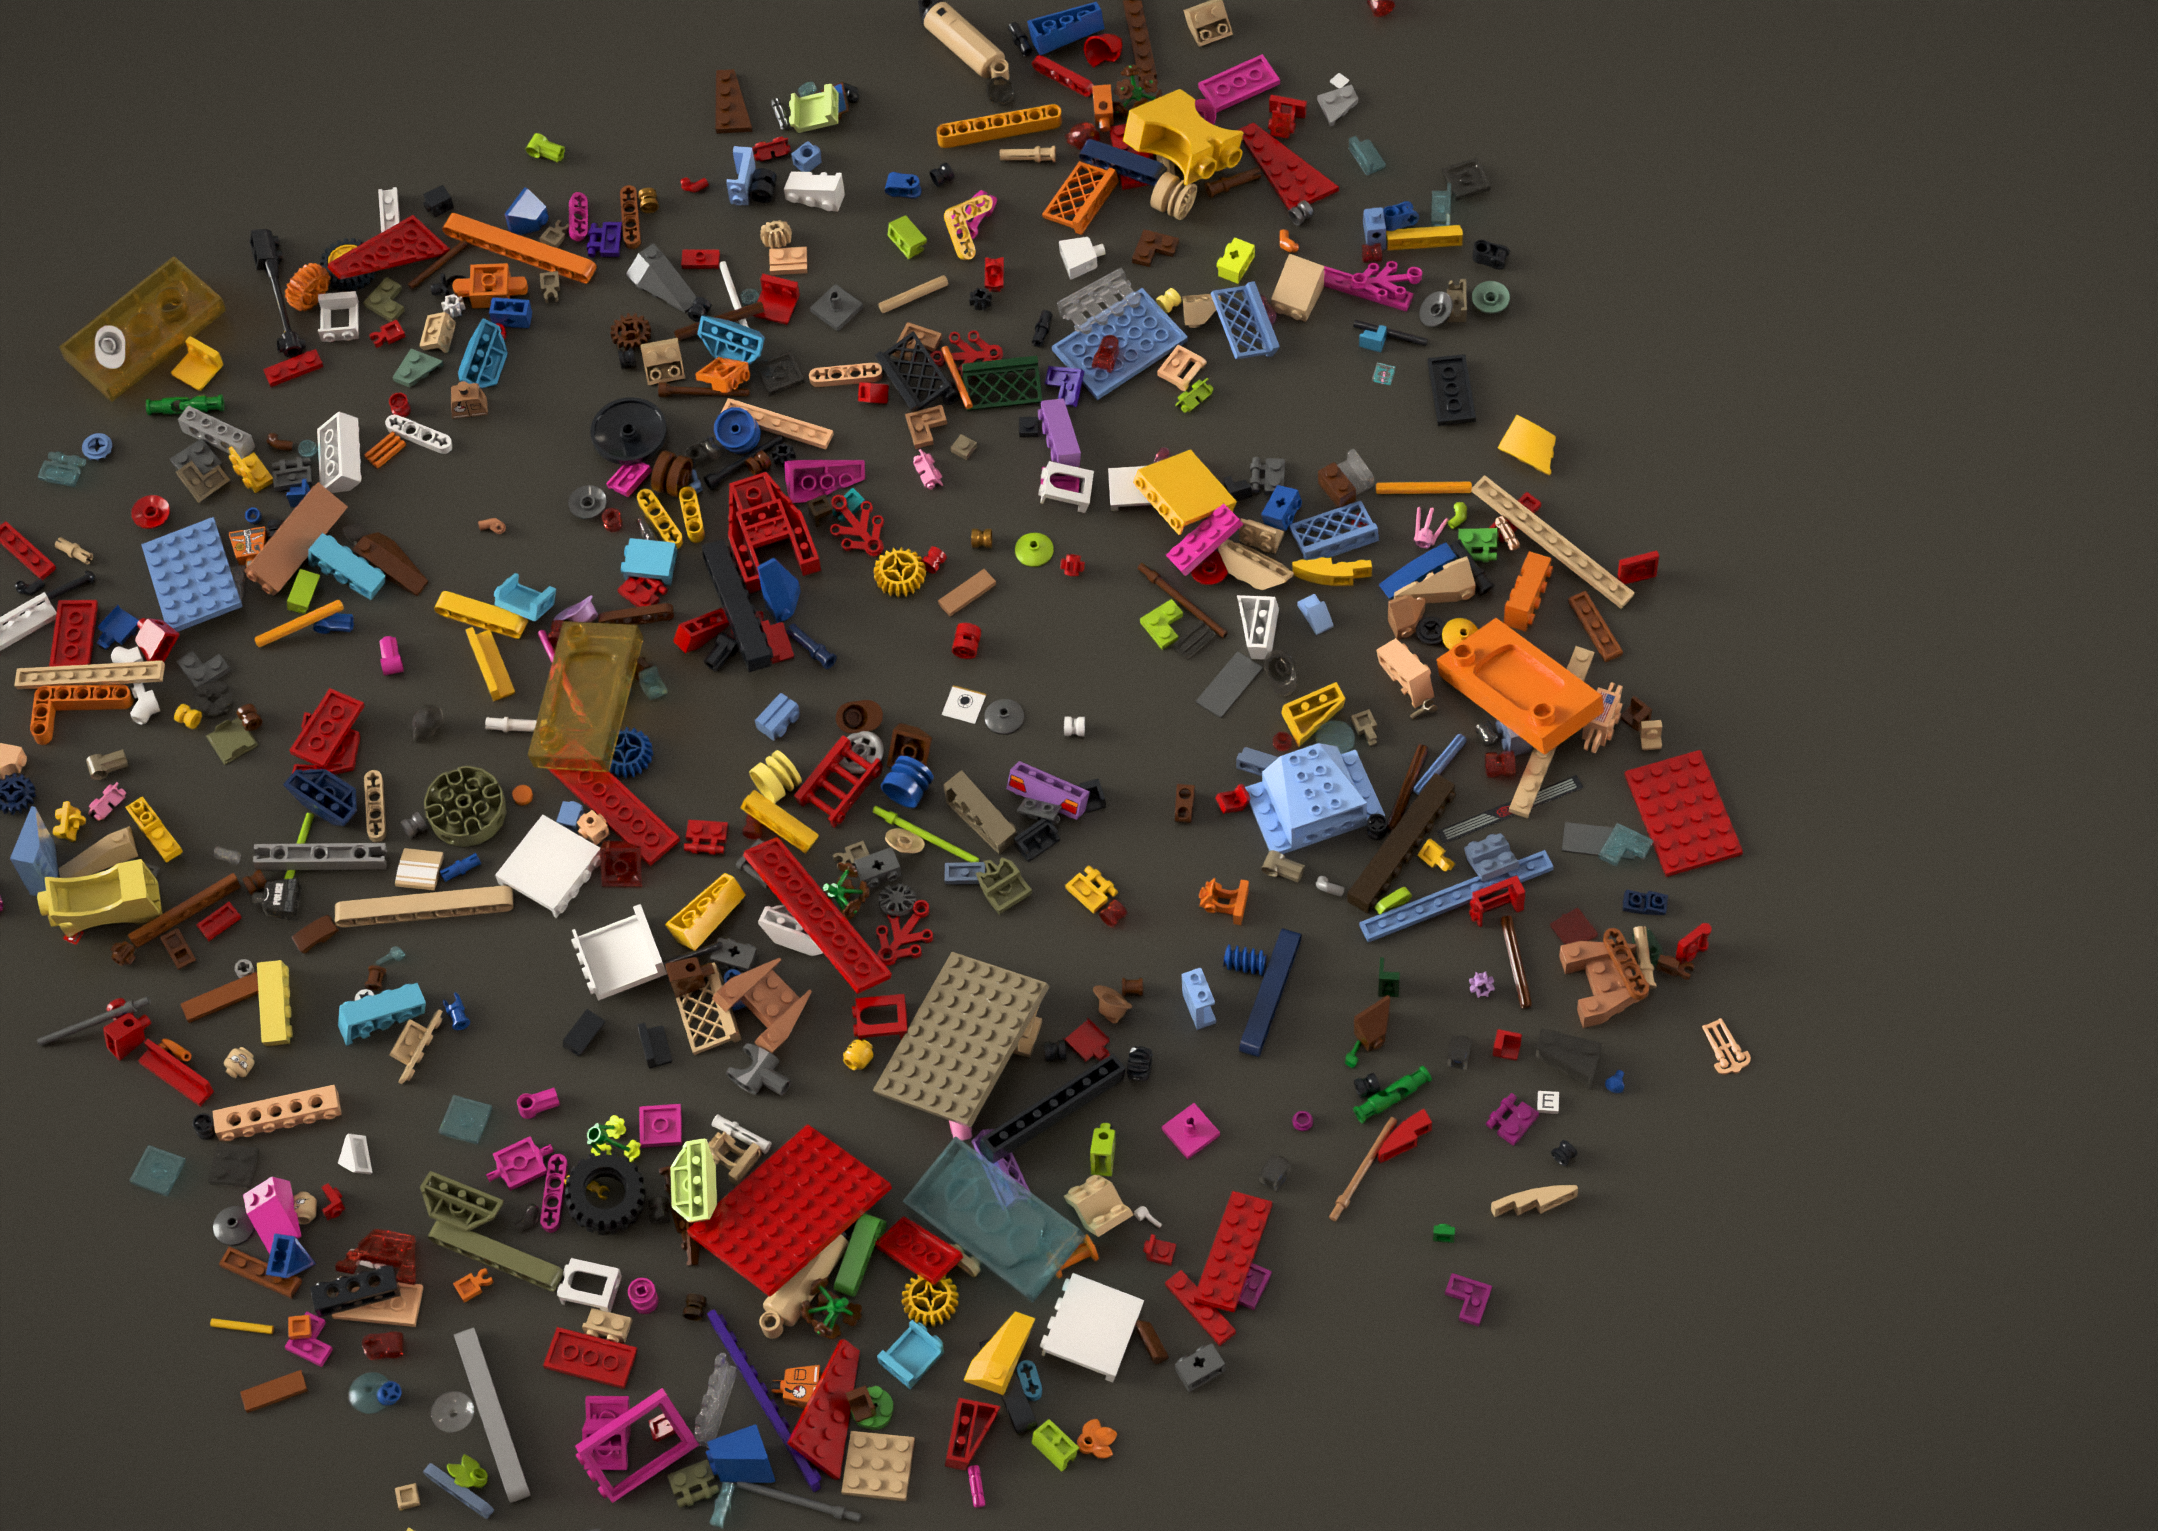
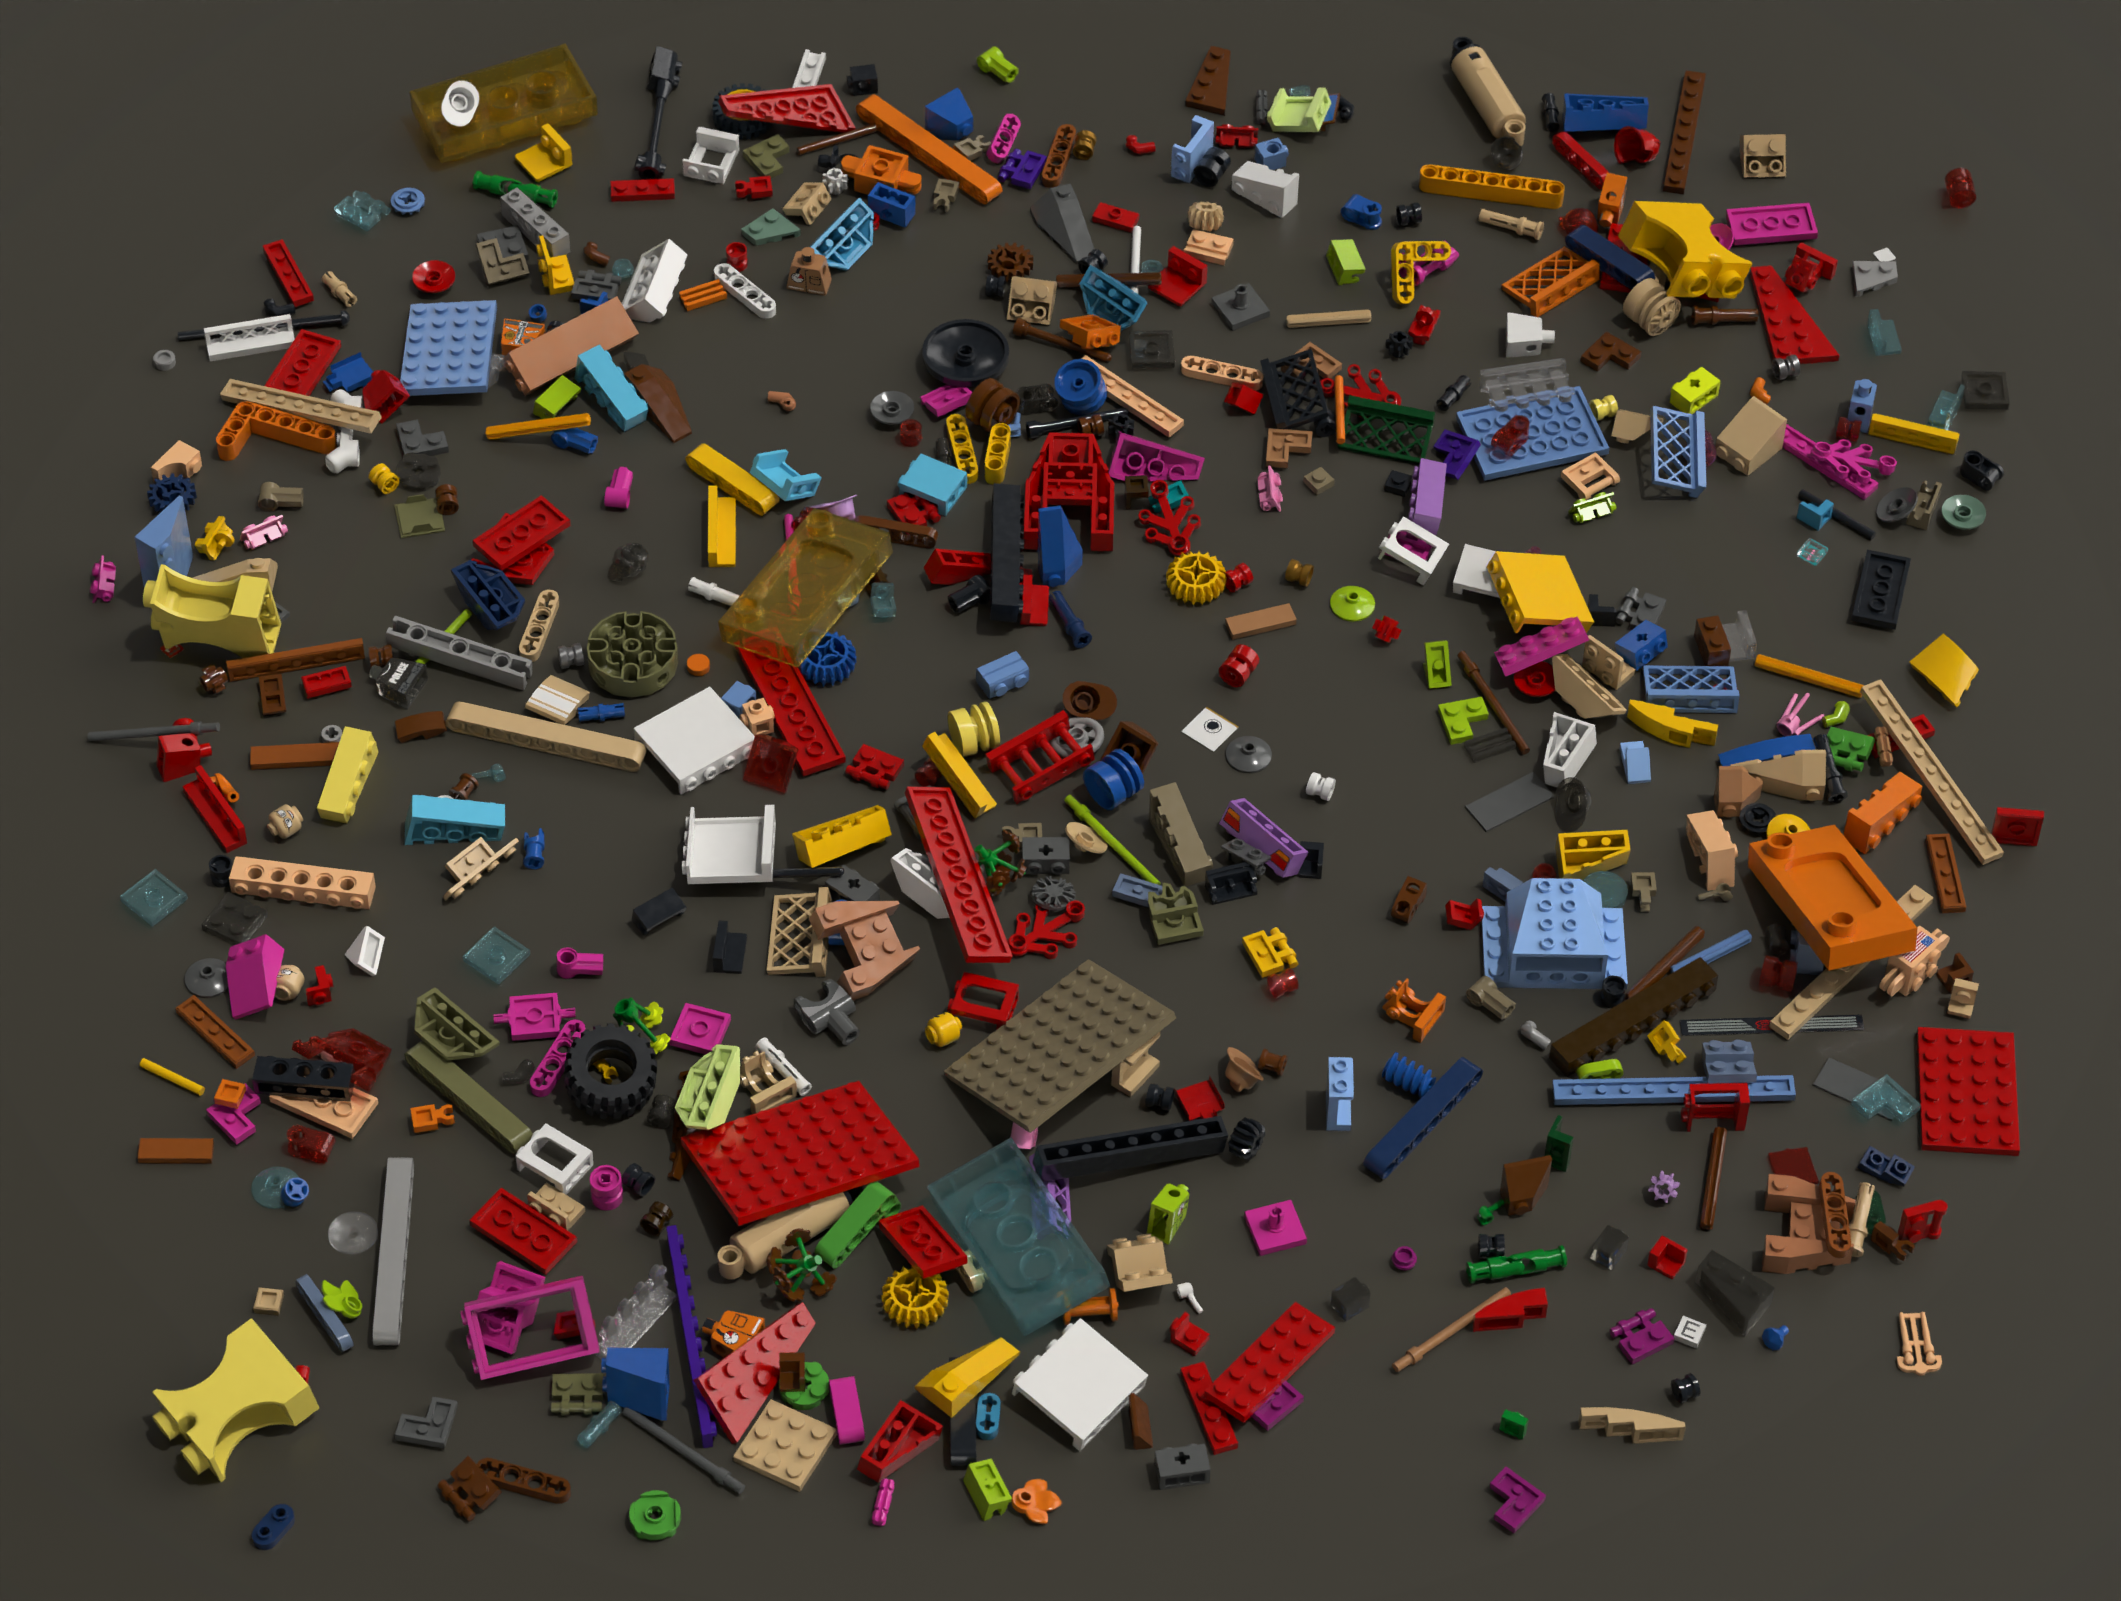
camera: 15 degrees right, 10 degrees down
(154, 829) = (299, 572): yellow slope -> none
(230, 856) = (367, 624): clear pin -> none
(287, 1257) = (249, 1023): blue slope -> none
(306, 285) = (688, 113): orange gear -> none
(665, 1278) = (638, 1179): none -> black wheel
(688, 975) = (793, 889): reddish brown torso -> none
(912, 1354) = (871, 1346): medium azure panel -> none
(915, 1418) = (846, 1410): none -> dark pink beam
(1125, 583) = (1437, 664): none -> lime slope
(1130, 91) = (1668, 188): reddish brown plant -> none
(1398, 215) = (1891, 402): blue piece -> none

